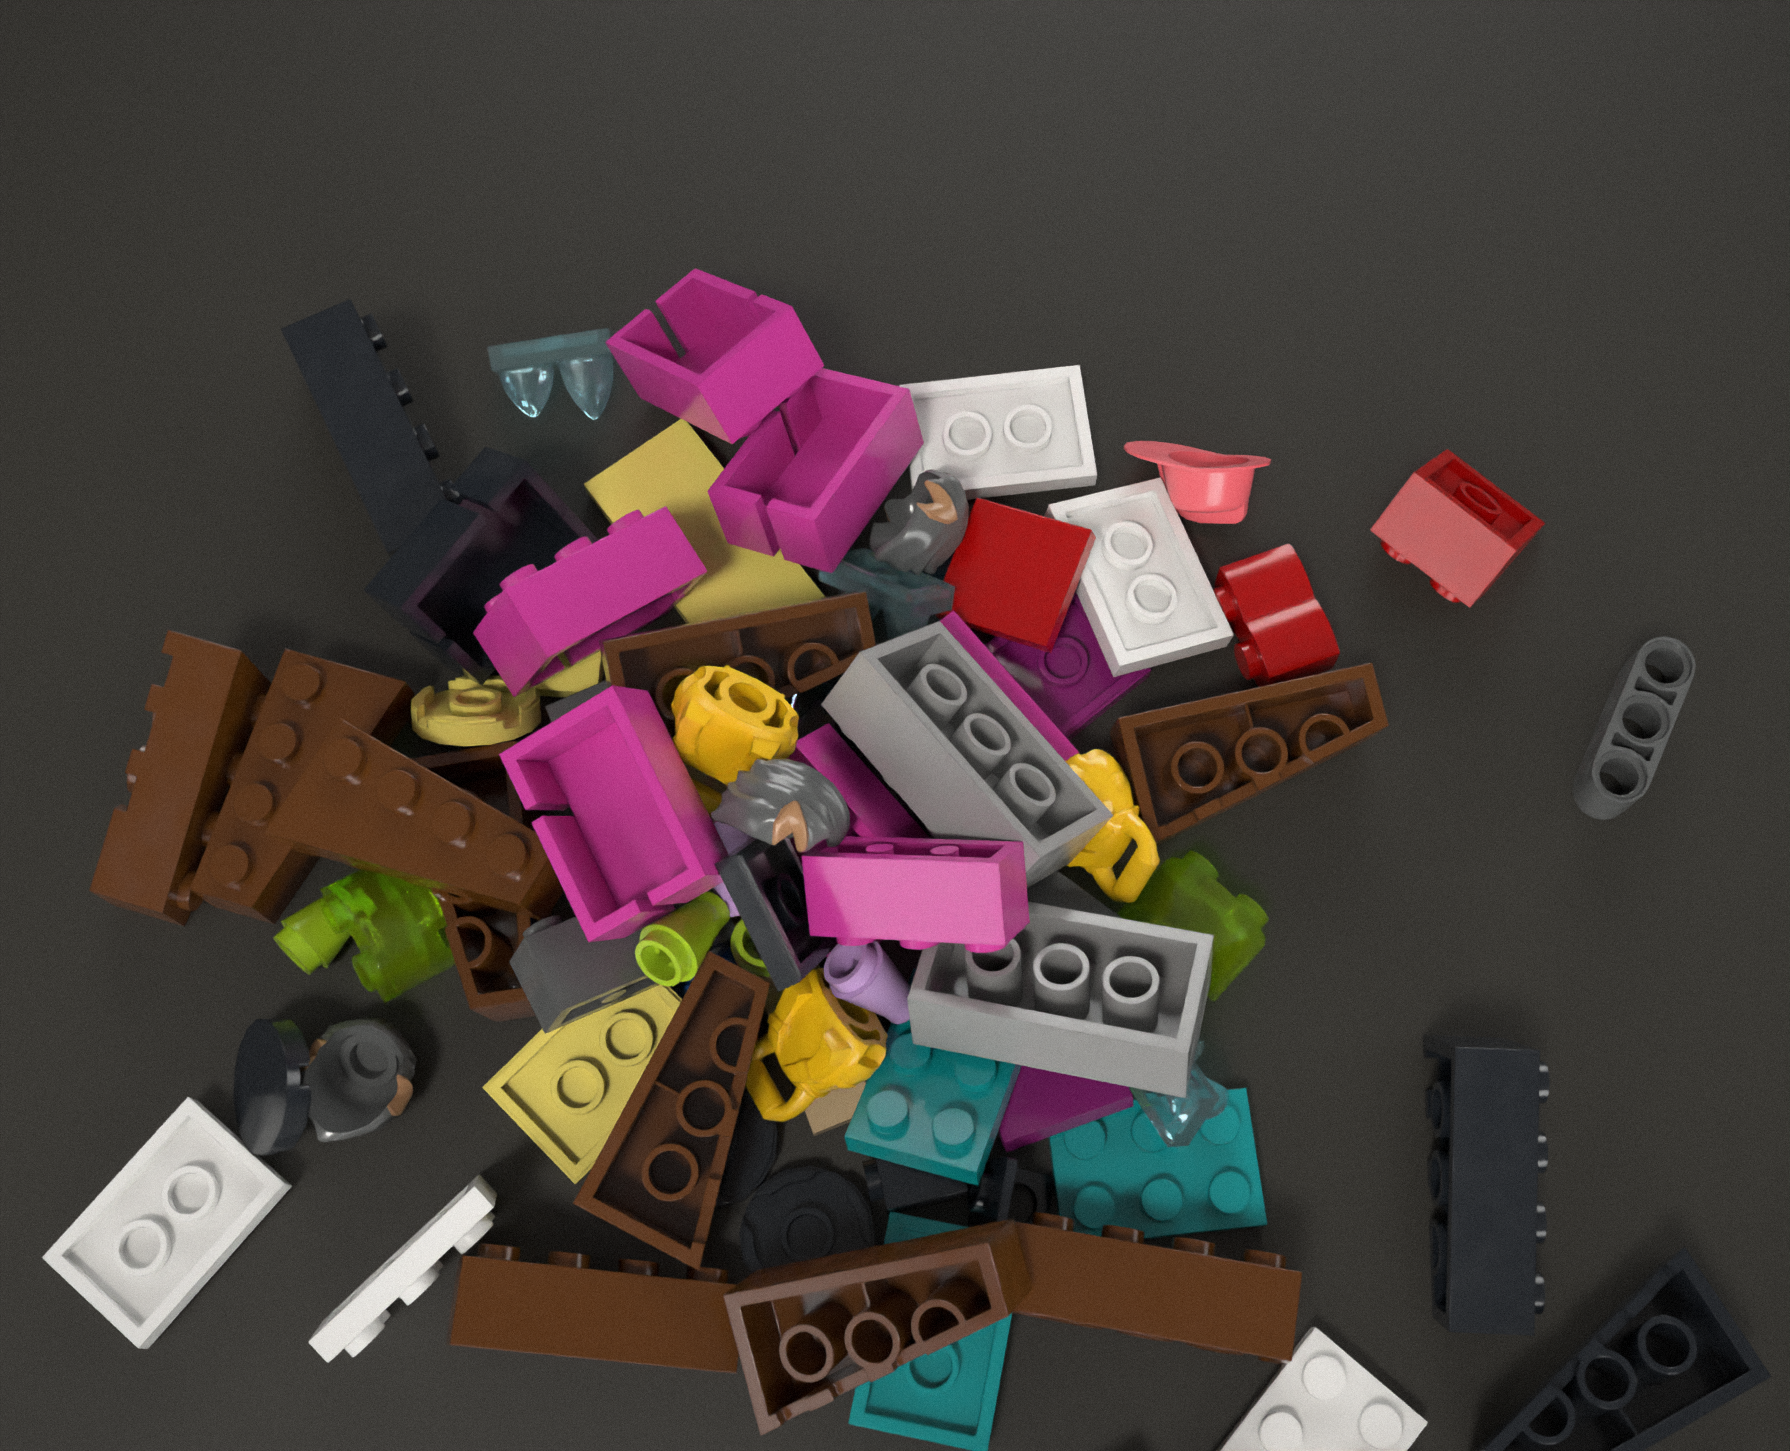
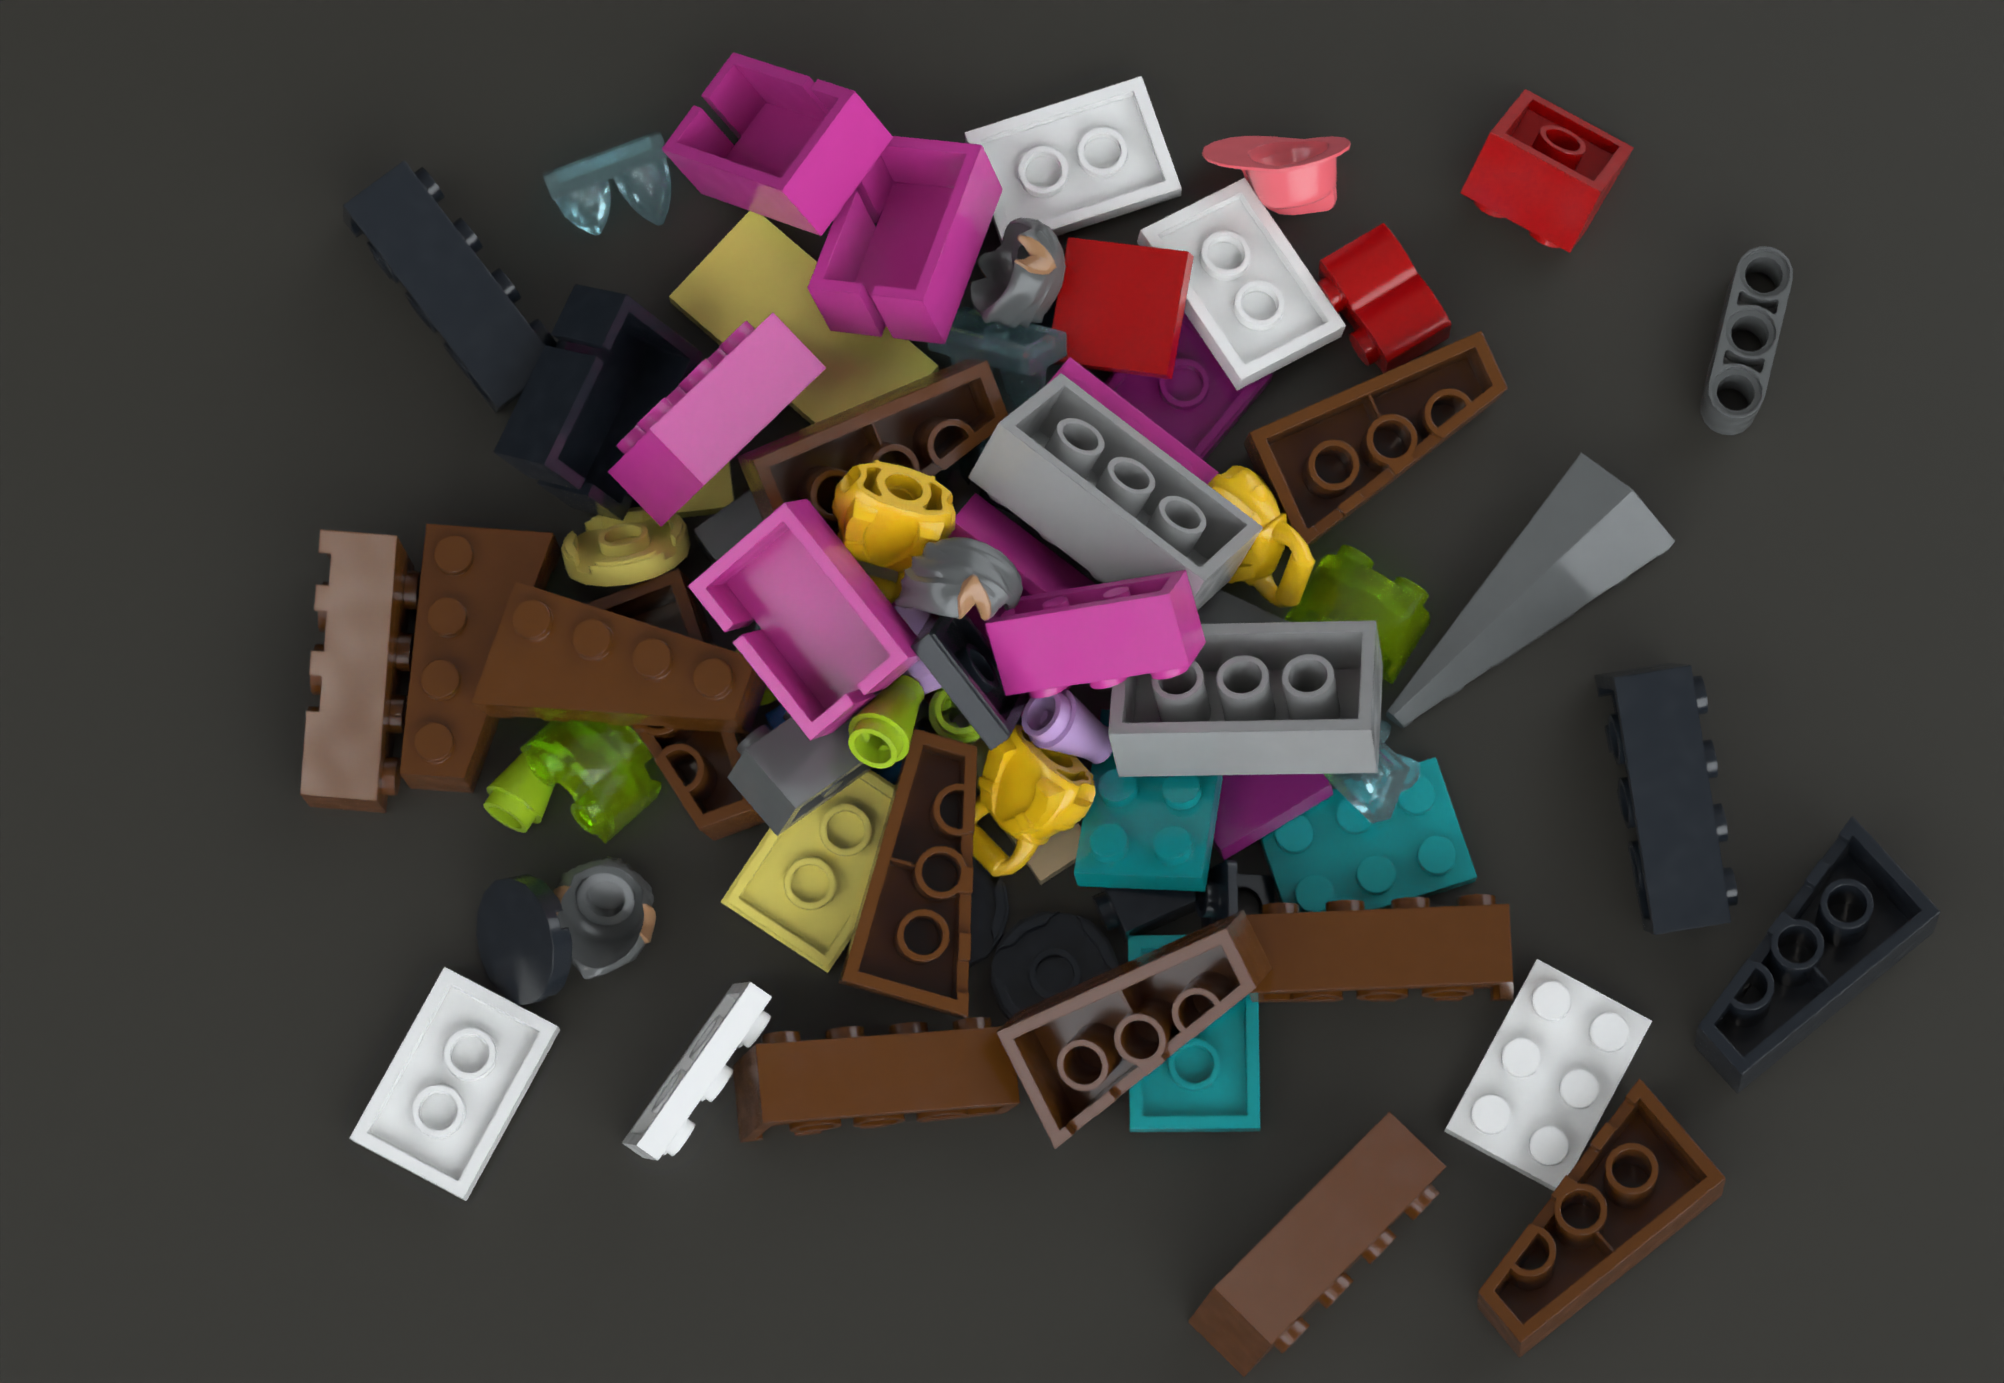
camera: 10 degrees left, 5 degrees up
(1422, 904) = (1570, 552): none -> dark grey wedge

